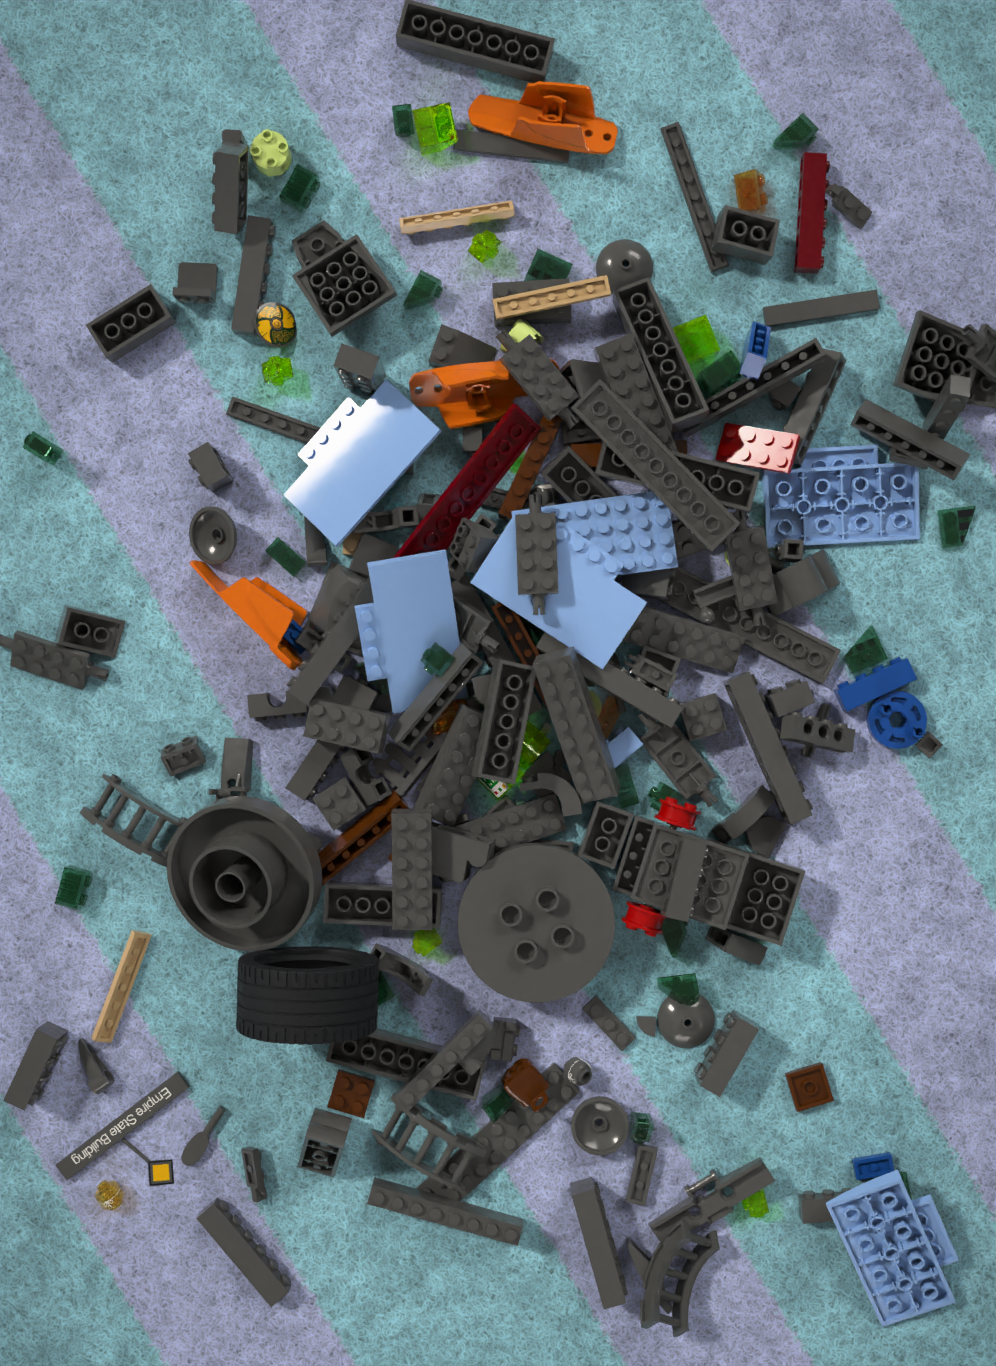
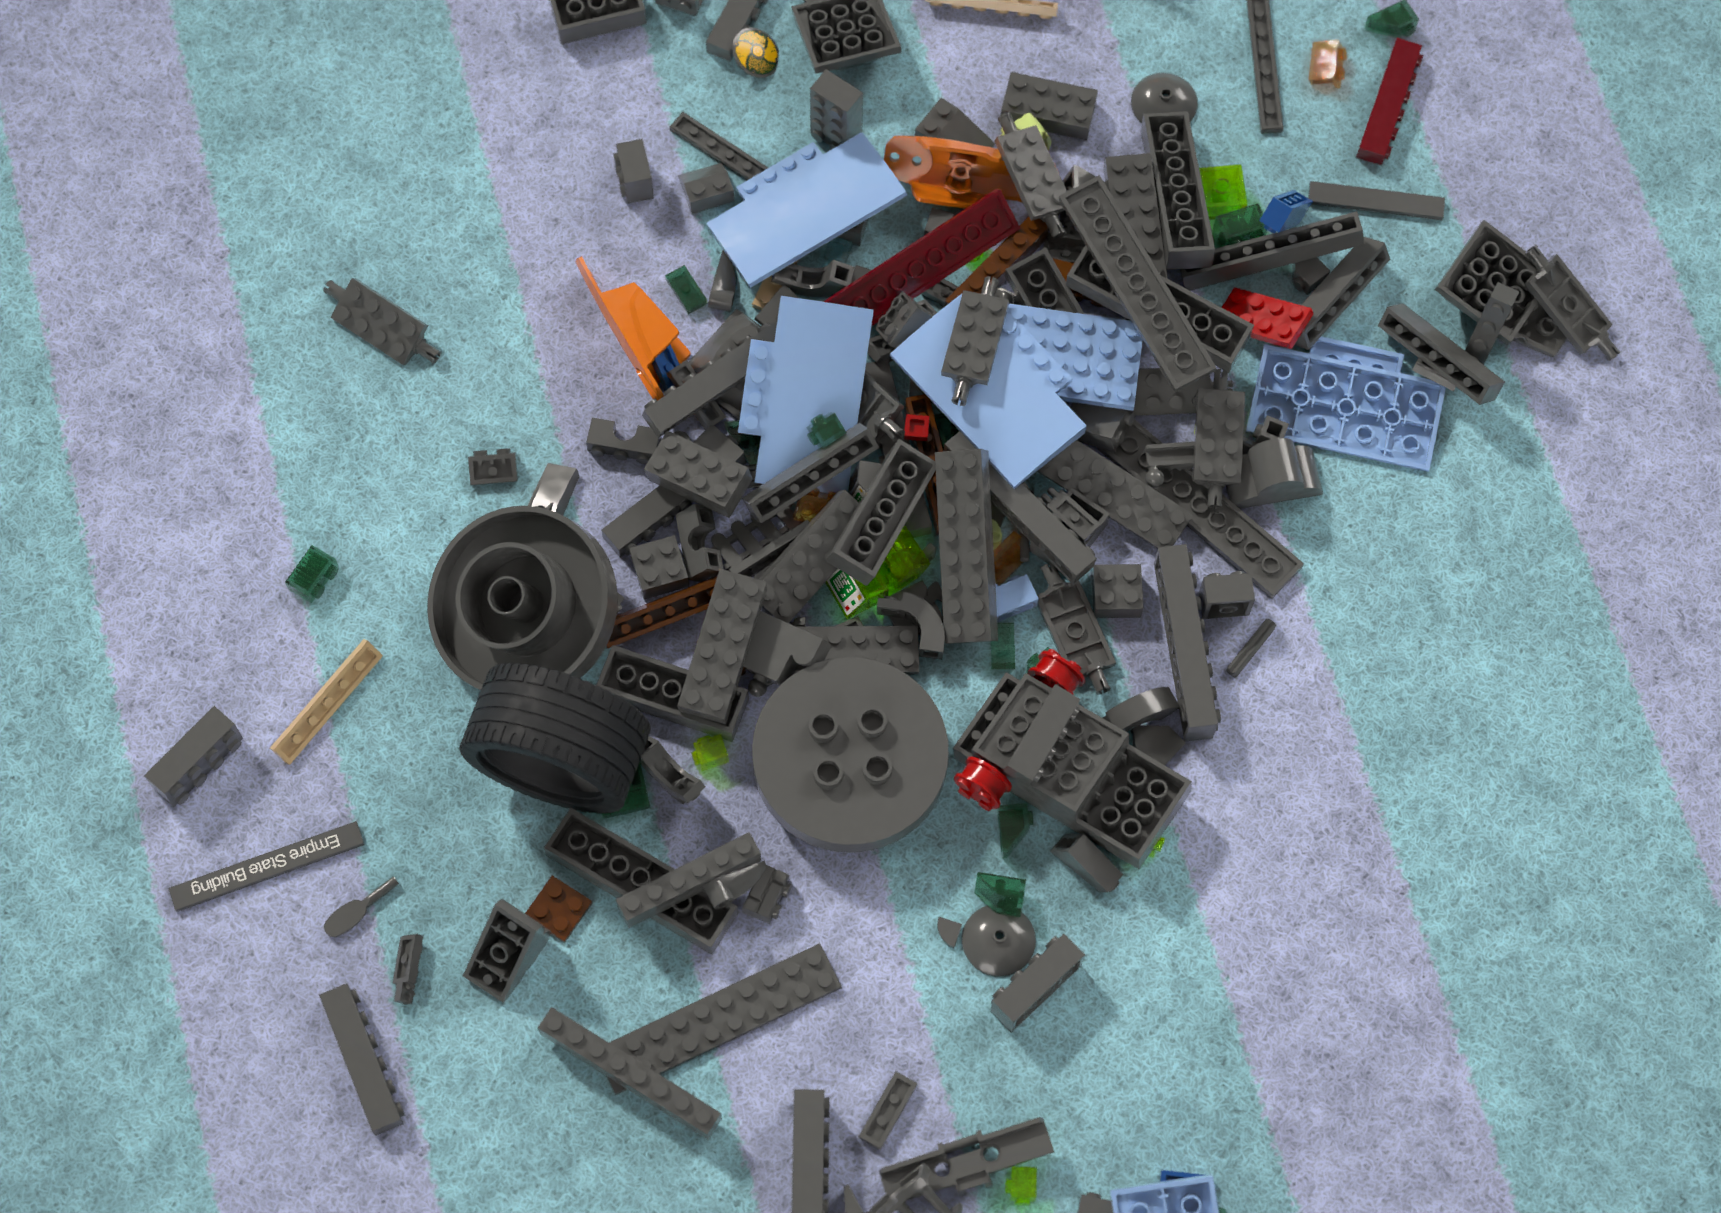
camera: 15 degrees right, 20 degrees down
(42, 448) = (455, 102): clear green brick -> none
(89, 631) = (436, 304): dark grey slope -> none
(96, 1071) = (258, 792): dark grey piece -> none
(109, 1195) = (220, 941): clear yellow head -> none
(126, 837) = (397, 527): dark grey fence -> none
(159, 1170) = (291, 936): piece -> none
(206, 537) = (612, 241): dark grey dish -> none
(273, 460) = (707, 188): none -> dark grey slope
(277, 370) = (742, 96): clear neon green brick -> none
(423, 291) = (931, 63): clear green slope -> none
(435, 1129) = (649, 964): dark grey fence -> none
(484, 246) = (1013, 36): clear neon green brick -> none
(496, 1102) = (736, 963): clear green slope -> none
(508, 633) = (916, 427): none -> red plate
(526, 1084) = (778, 948): reddish brown piece -> none
(547, 267) = (1079, 74): clear green wing -> none
(551, 297) = (1072, 99): tan plate -> none
(577, 1071) = (846, 956): dark grey head -> none
(601, 1138) = (856, 1011): dark grey dish -> none
(605, 834) = (965, 687): dark grey brick -> none
(608, 1023) = (902, 915): dark grey plate -> none
(640, 1127) = (903, 1047): slope -> none
(745, 235) = (1308, 100): dark grey brick -> none
(809, 1086) = (1130, 1063): reddish brown plate -> none
(817, 733) = (1249, 640): dark grey brick -> none
(848, 205) = (1434, 103): dark grey hinge -> none
(865, 652) = (1332, 576): clear green wing -> none
(874, 684) = (1334, 613): blue brick -> none
(910, 728) = (1340, 643): blue piece -> none
(928, 745) = (1383, 702): dark grey tile -> none
(954, 525) = (1474, 468): clear green wing -> none

